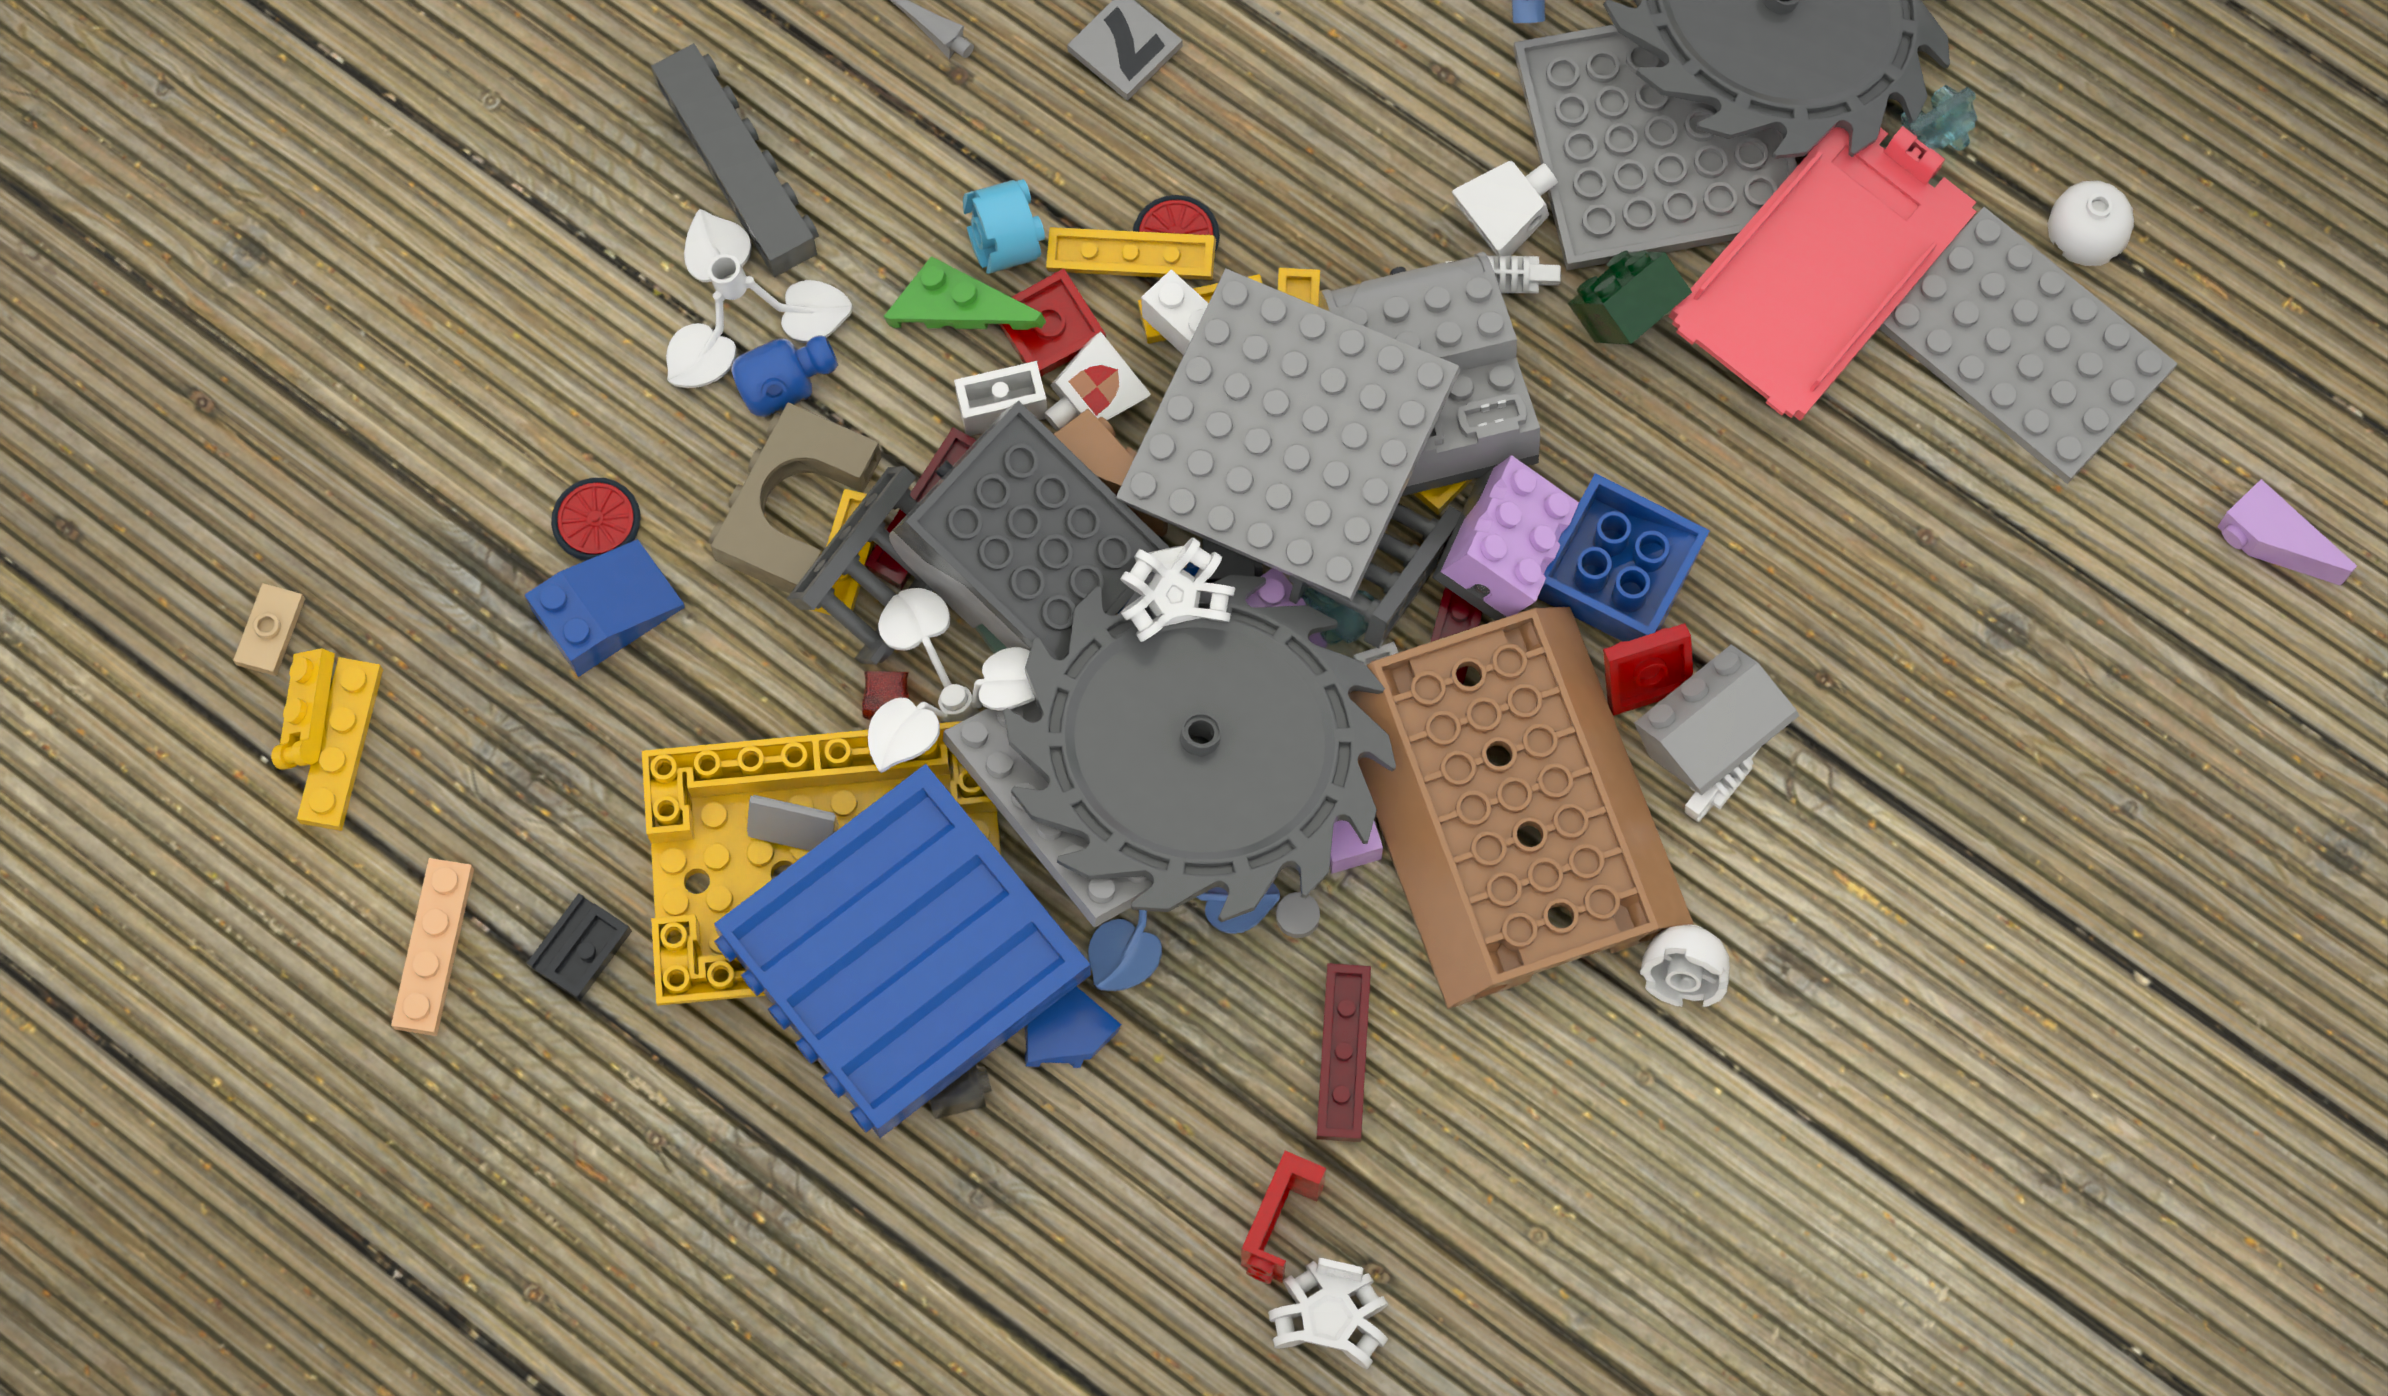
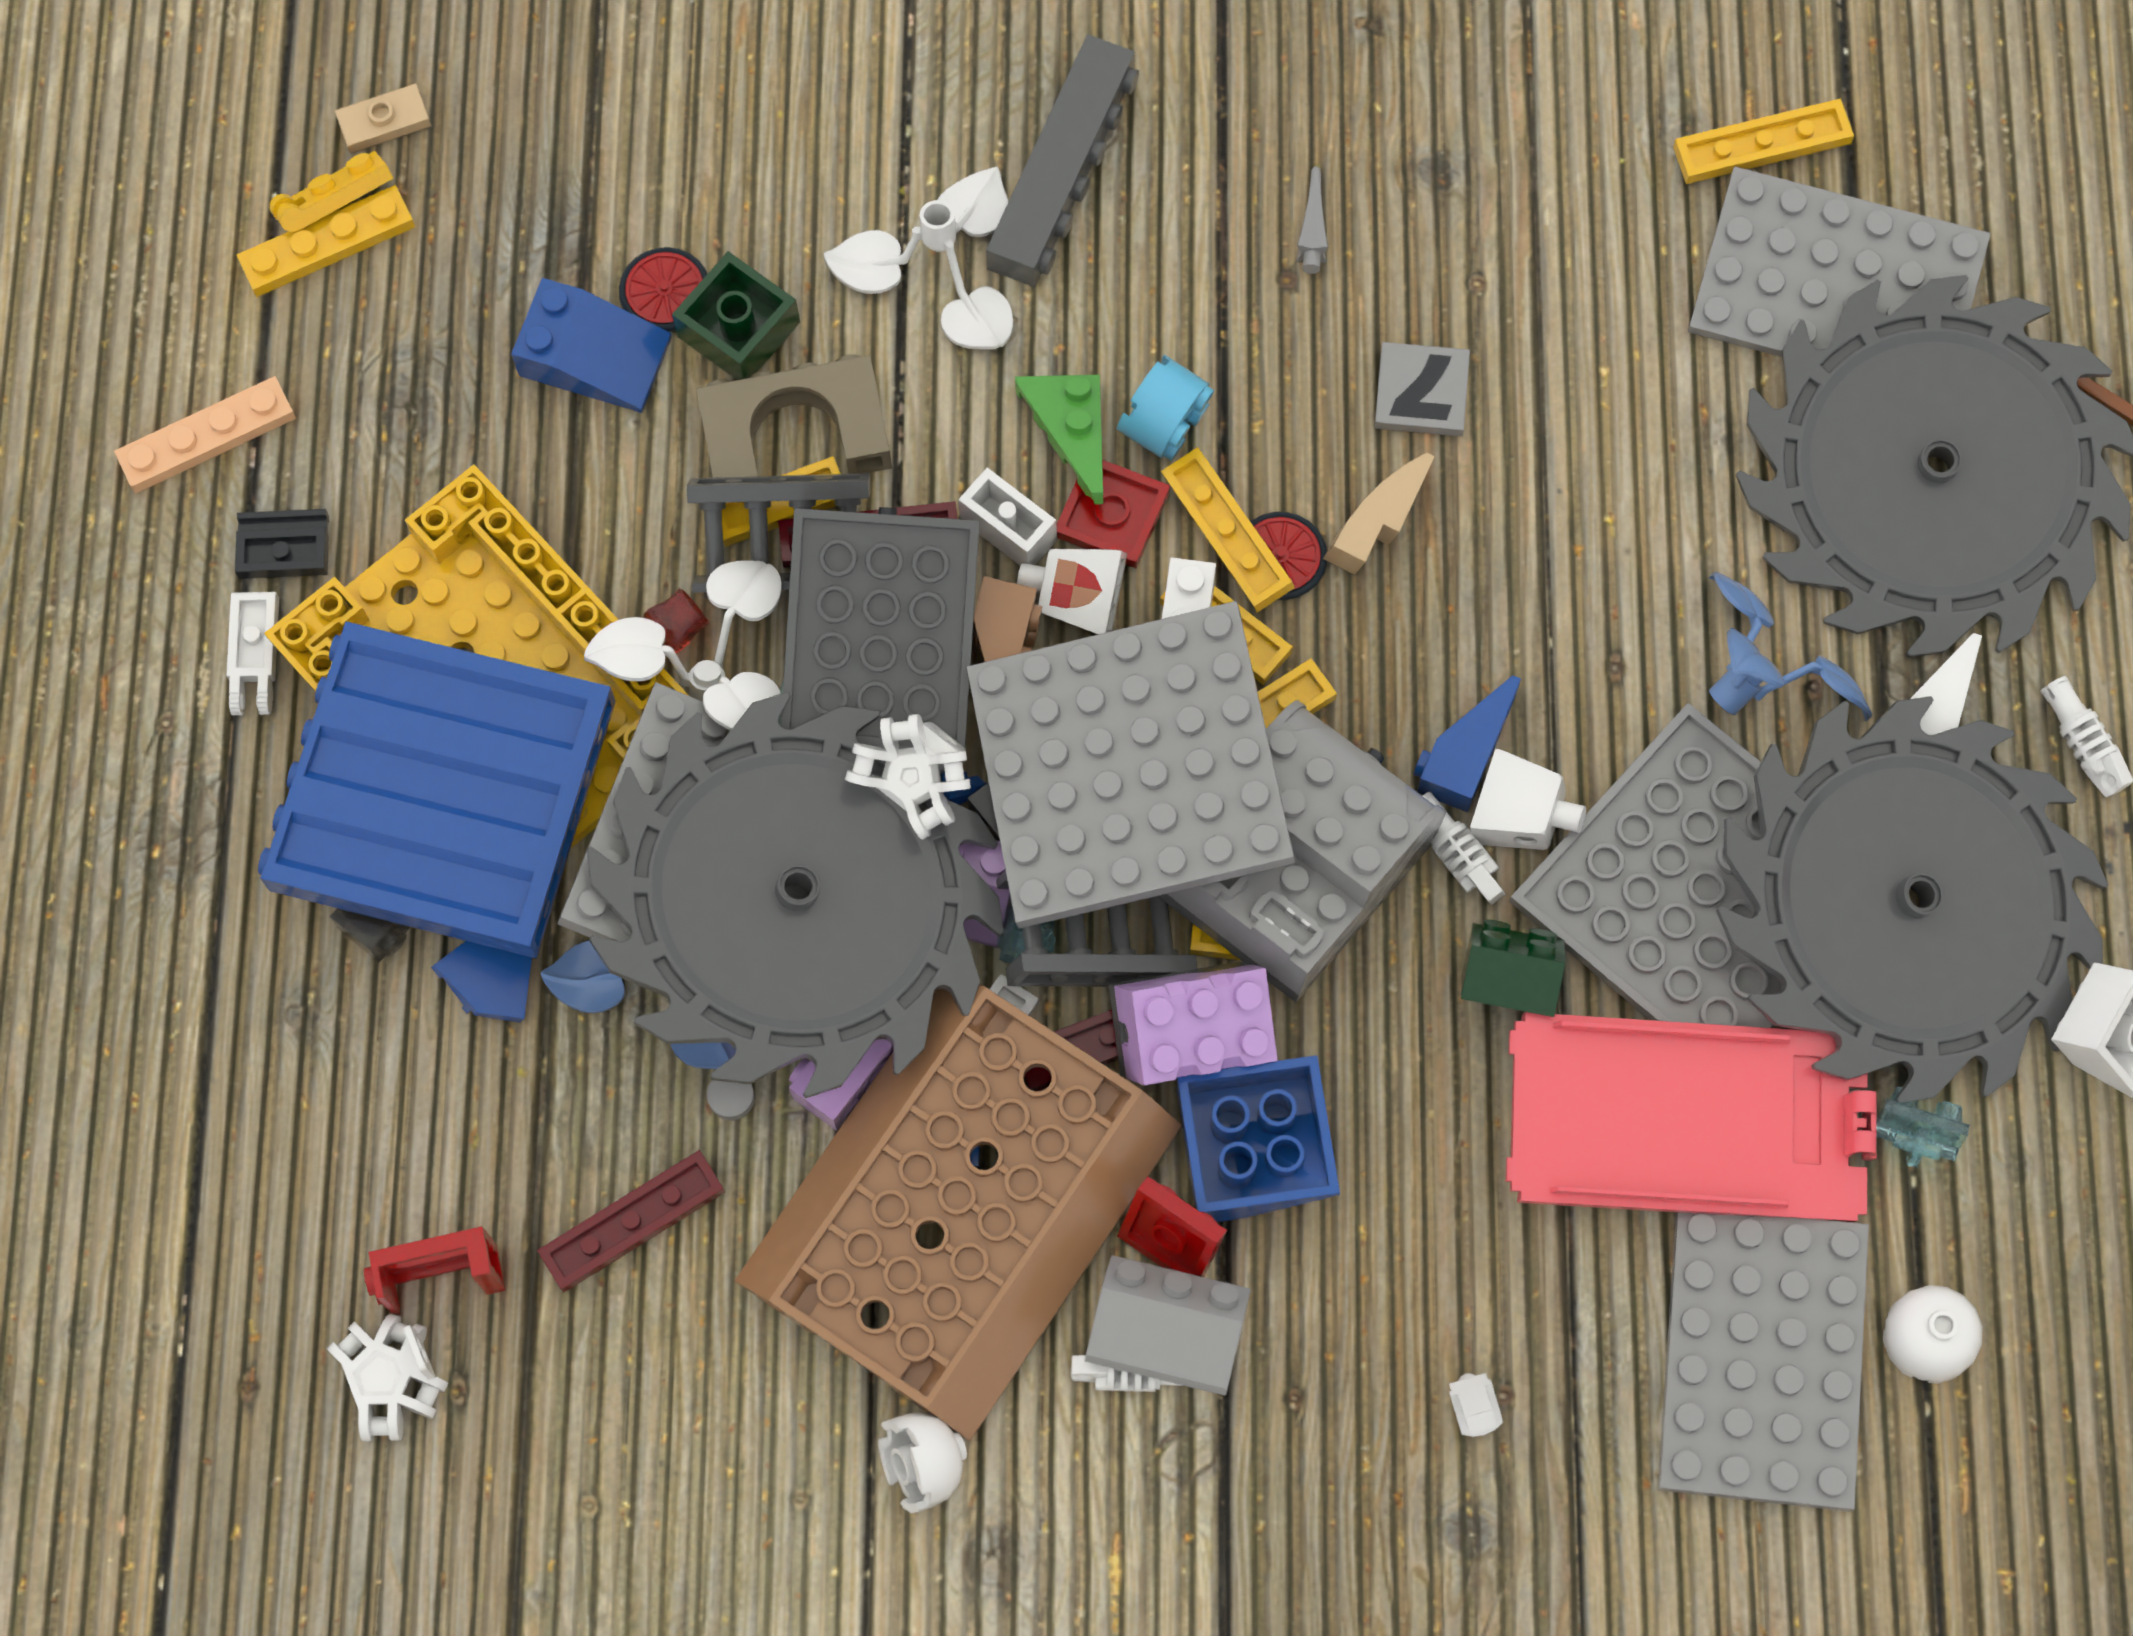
camera: 55 degrees right, 0 degrees up
(650, 1027) = (249, 651): none -> white hinge
(673, 478) = (736, 317): none -> dark green brick
(781, 373) = (896, 333): blue piece -> none
(789, 823) = (496, 622): light grey slope -> none
(1205, 143) = (1378, 515): none -> tan slope
(1436, 221) = (1464, 750): none -> blue slope
(1925, 555) = (1475, 1404): none -> white piece

